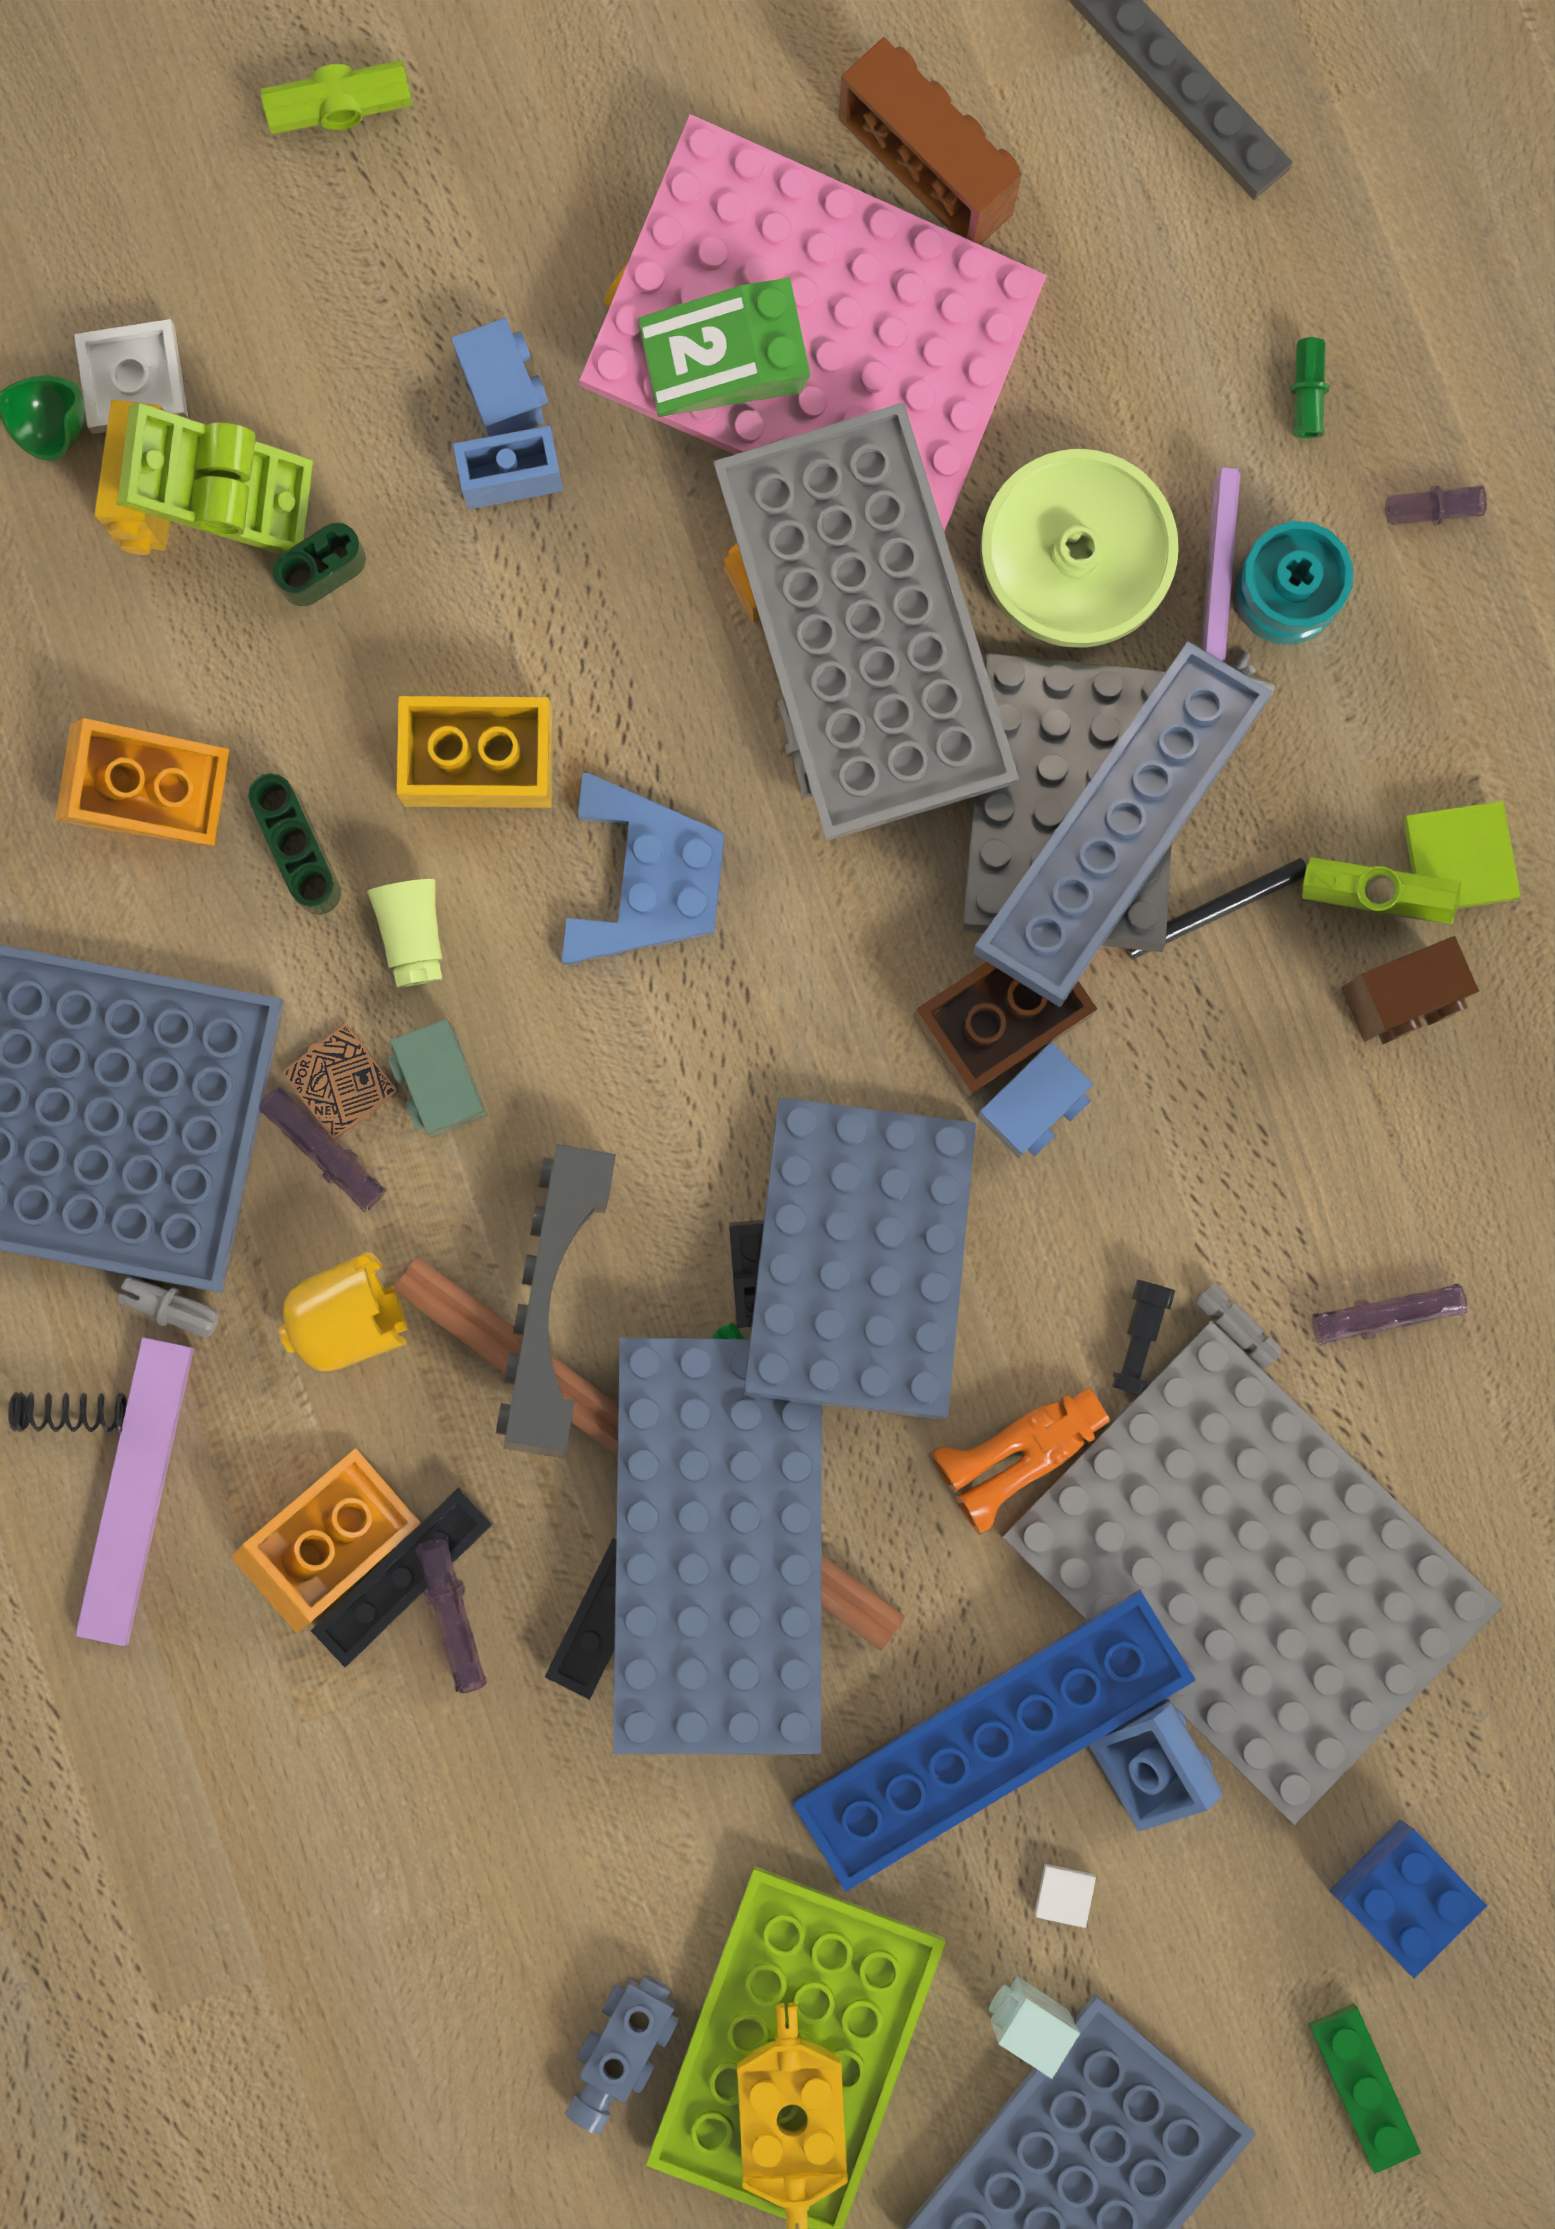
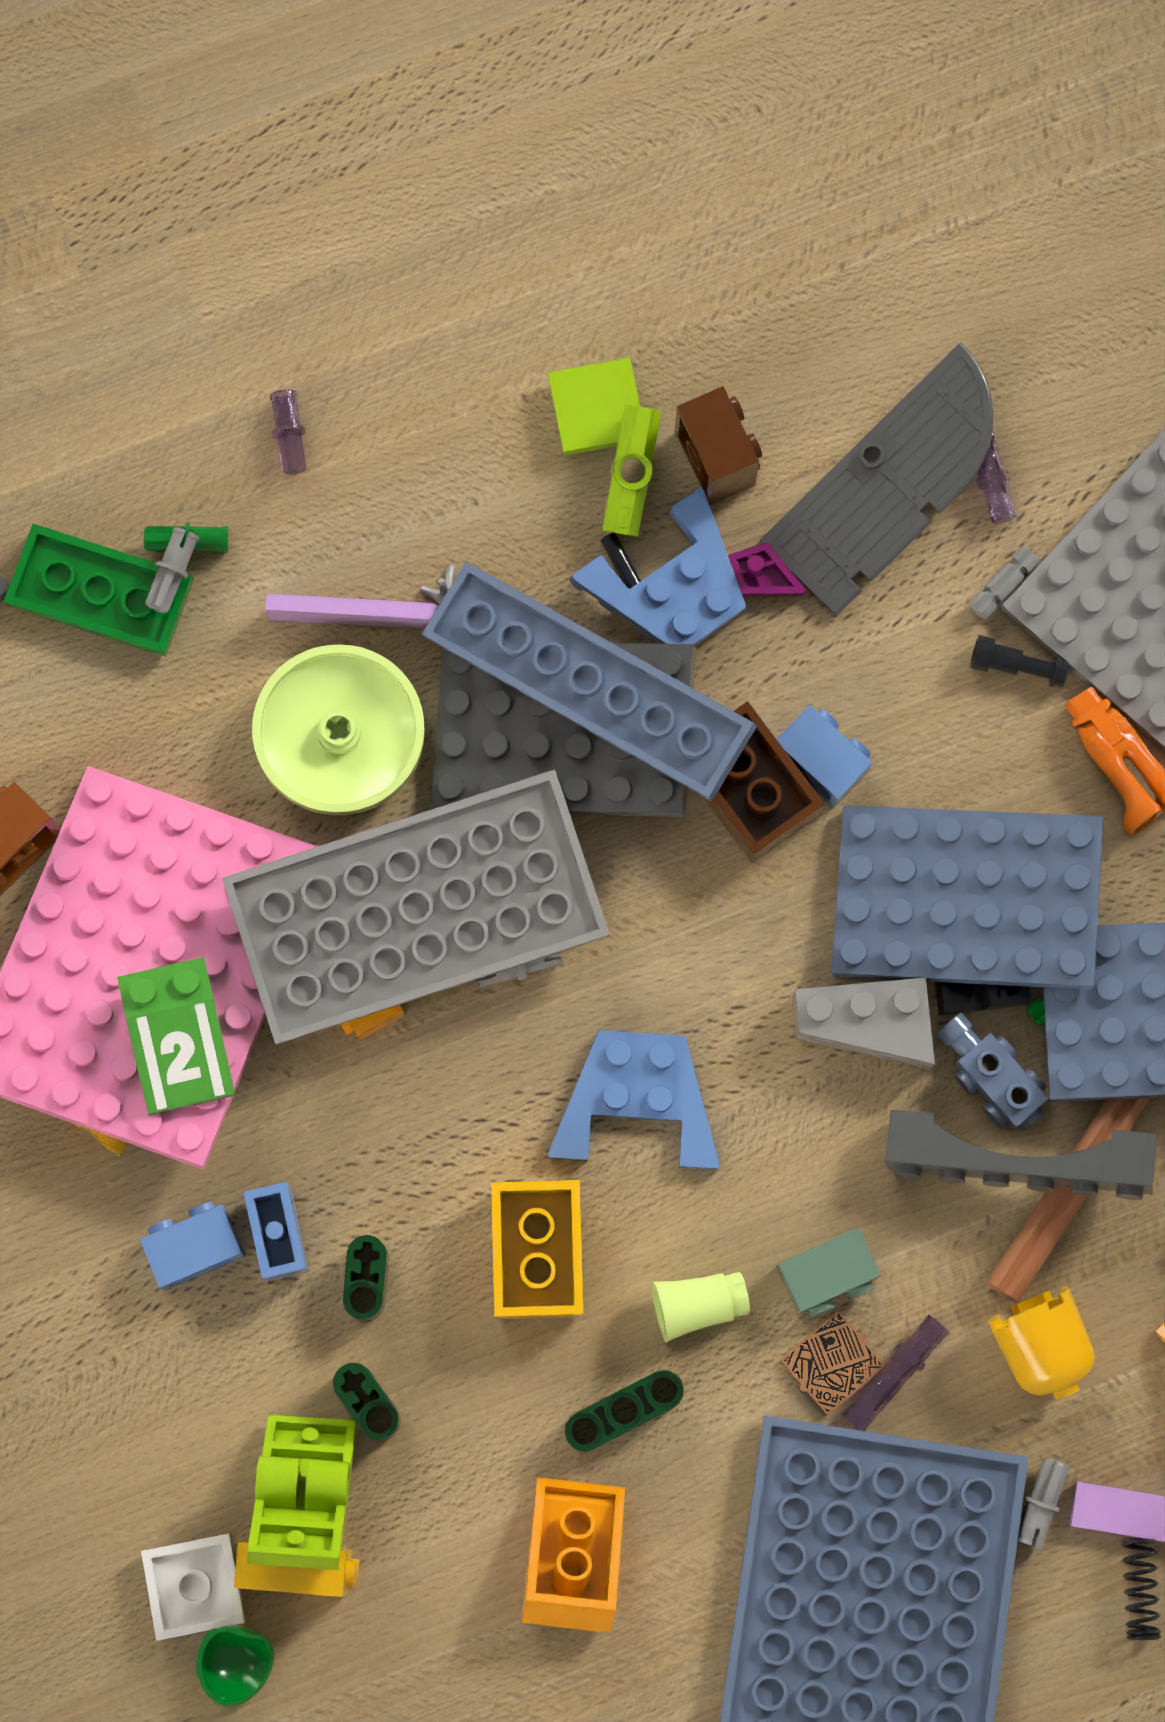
camera: 90 degrees left, 5 degrees down
(445, 580) = (377, 1268): none -> dark green beam
(645, 1285) = (994, 1085): none -> sand blue brick
(723, 1137) = (869, 1019): none -> light grey wedge
(1228, 949) = (685, 596): none -> medium blue wing
(1251, 290) = (93, 590): none -> green plate
(1256, 1043) = (763, 573): none -> magenta piece
(1269, 362) = (171, 571): none -> light grey axle
(1311, 560) = (365, 572): teal wheel -> none
(1350, 1178) = (875, 495): none -> dark grey door

